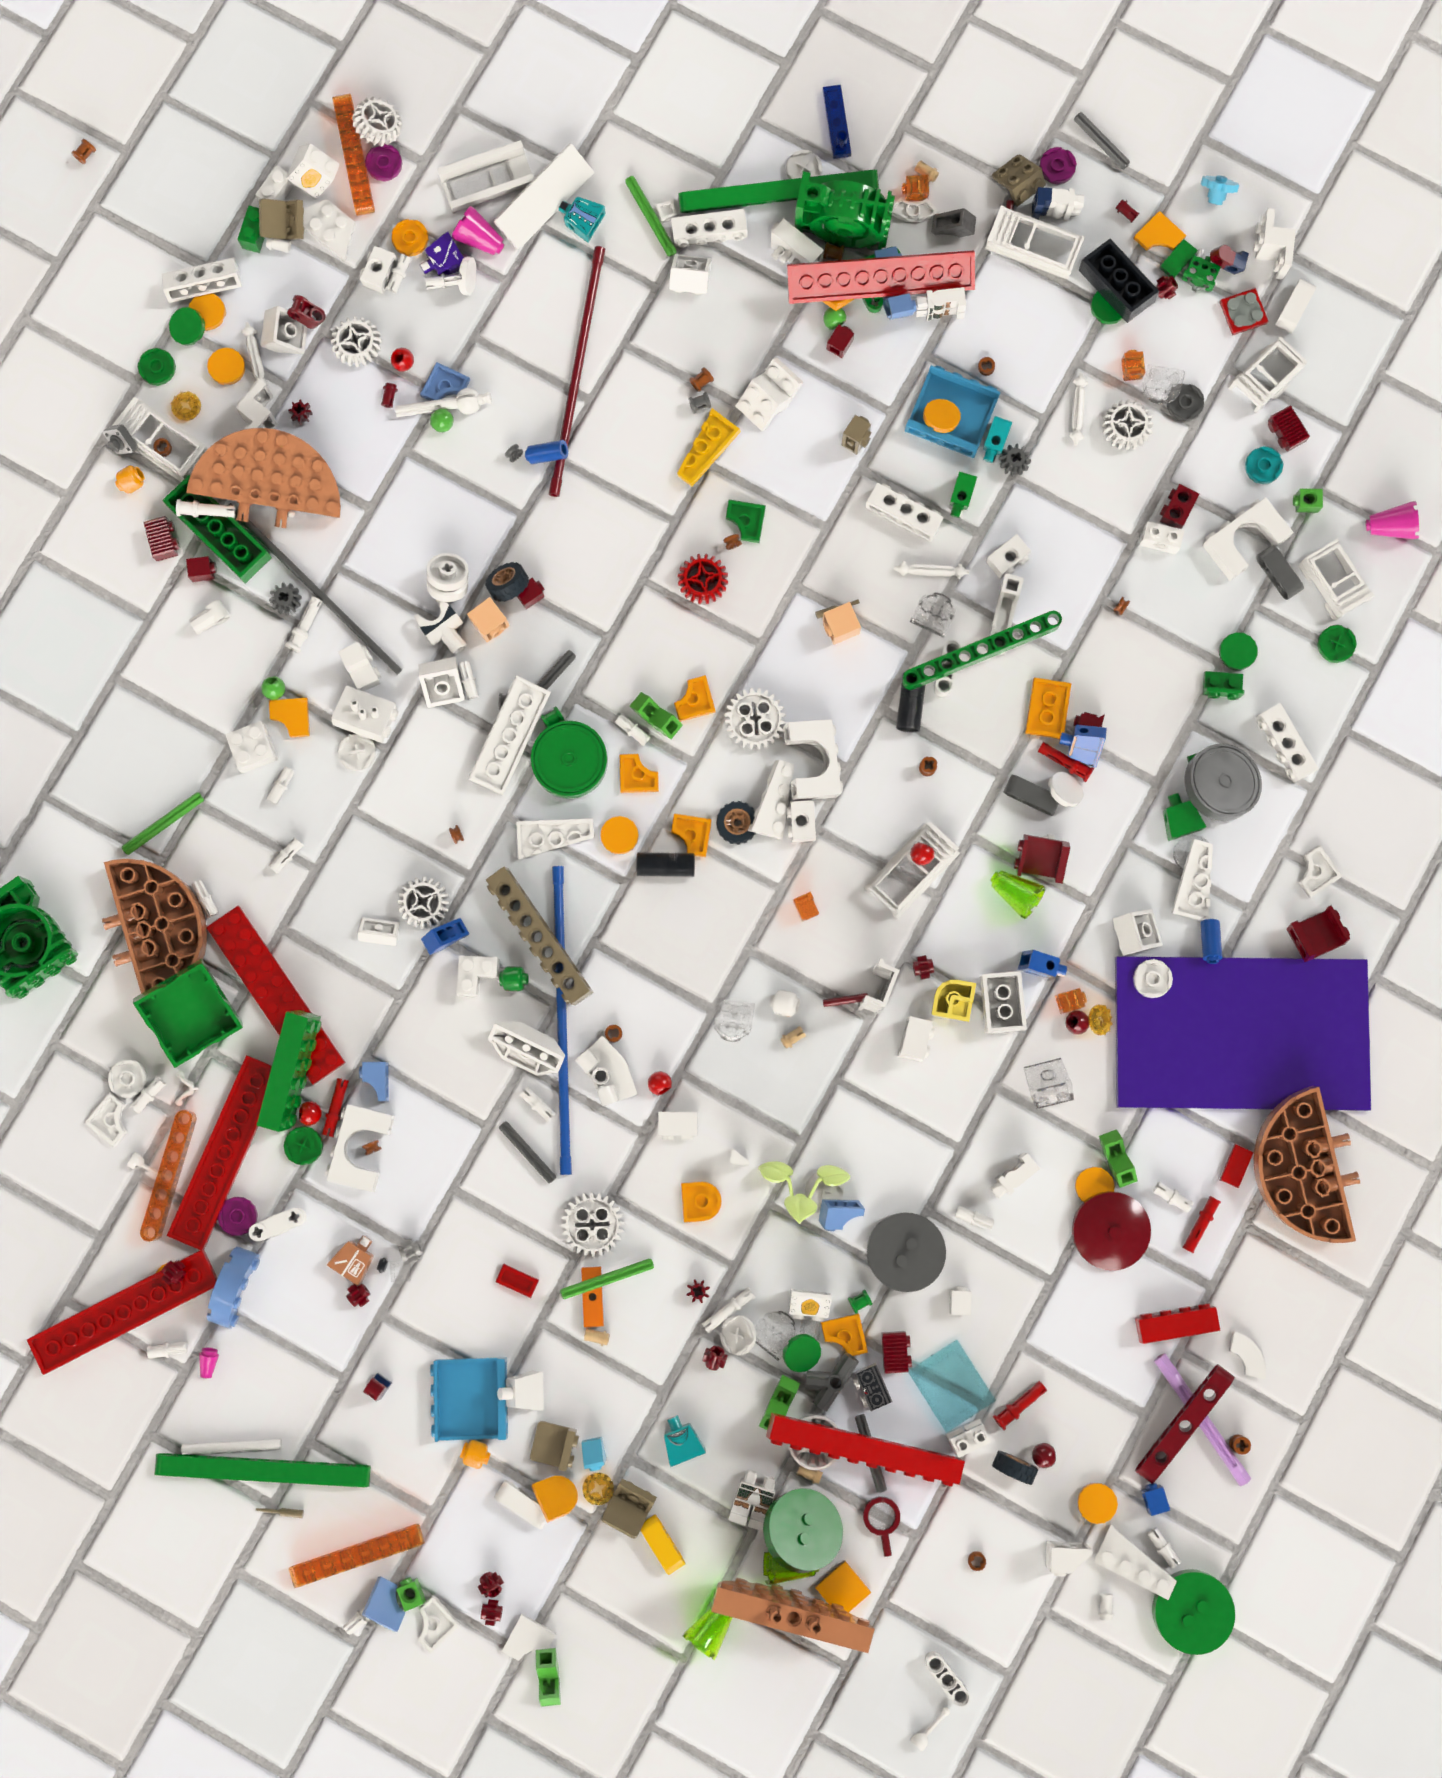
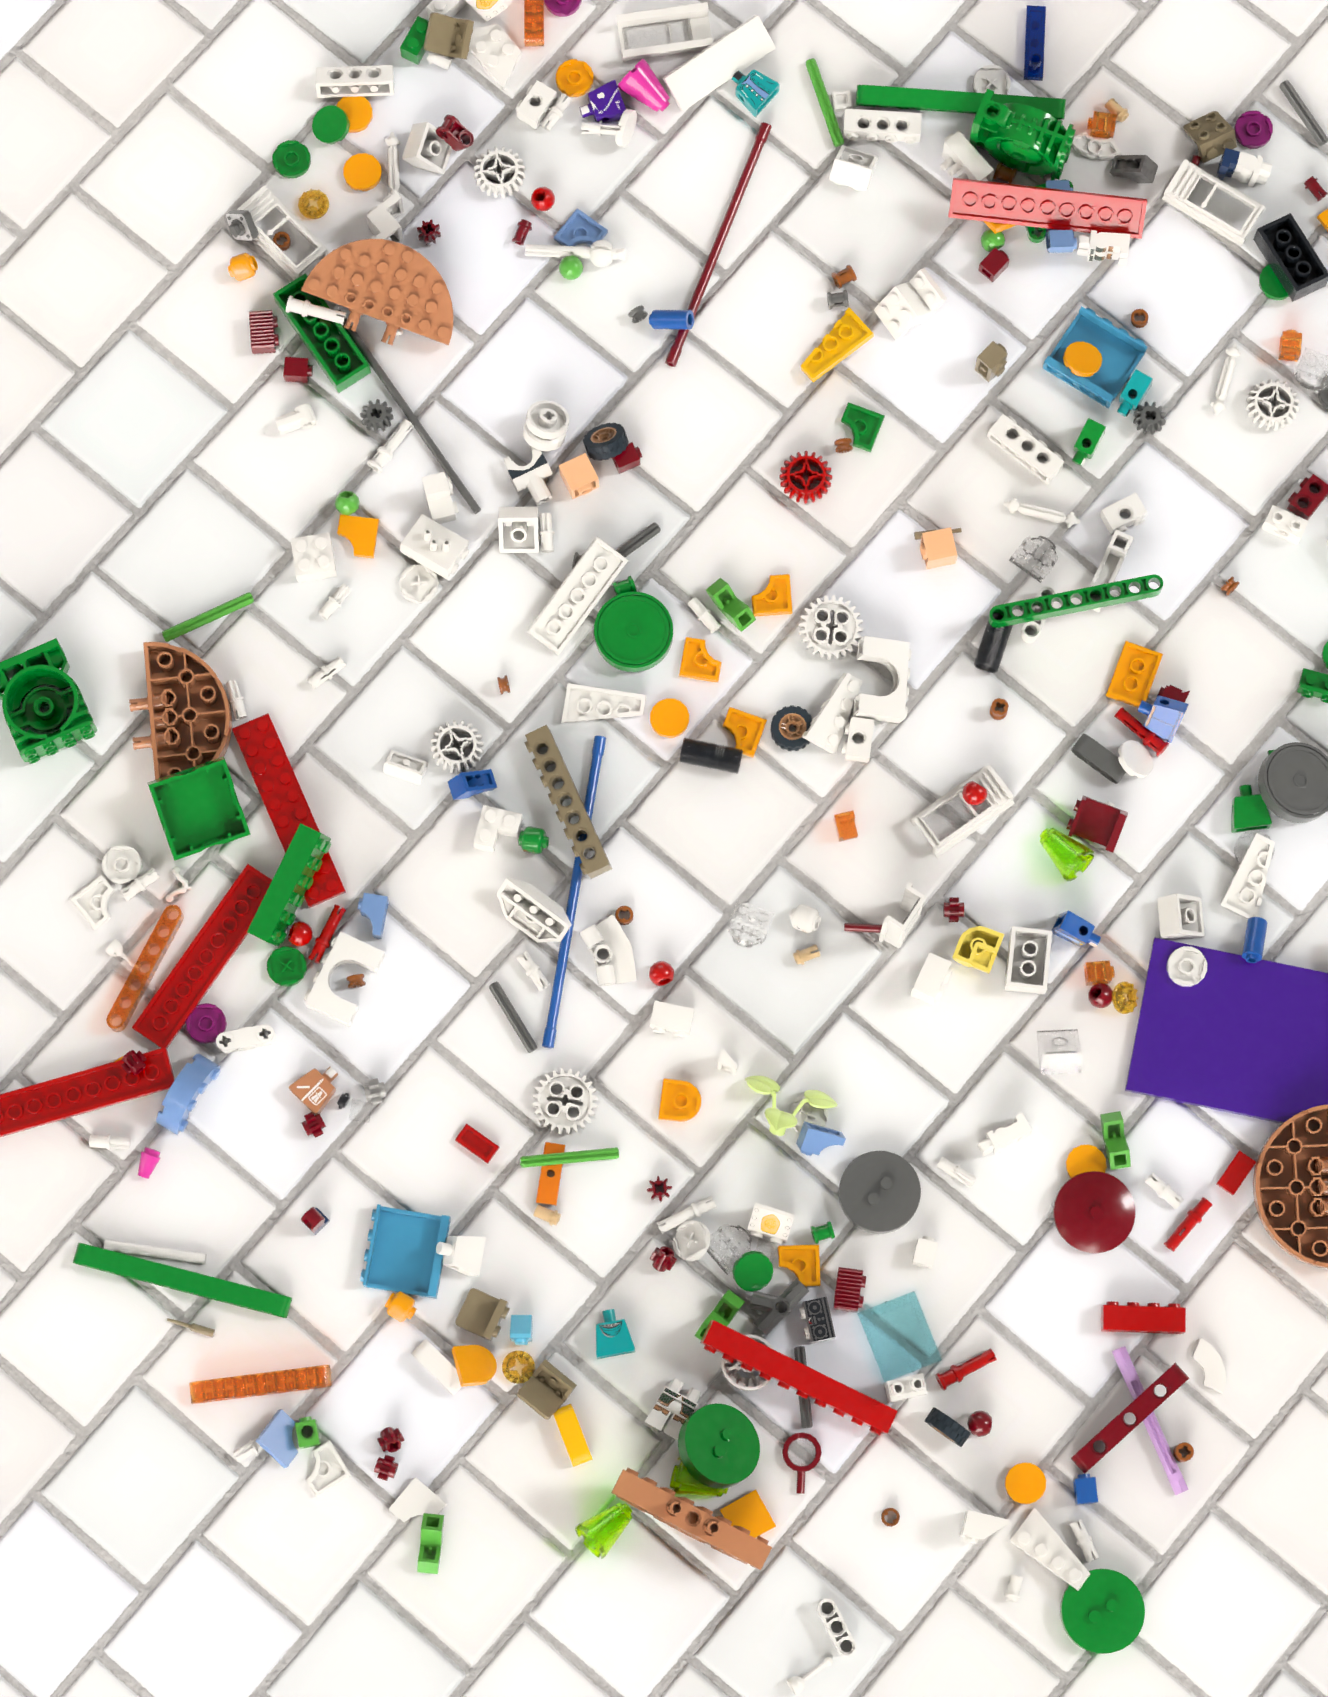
camera: 10 degrees right, 5 degrees down
(813, 1475) = (737, 1394): tan pin -> none

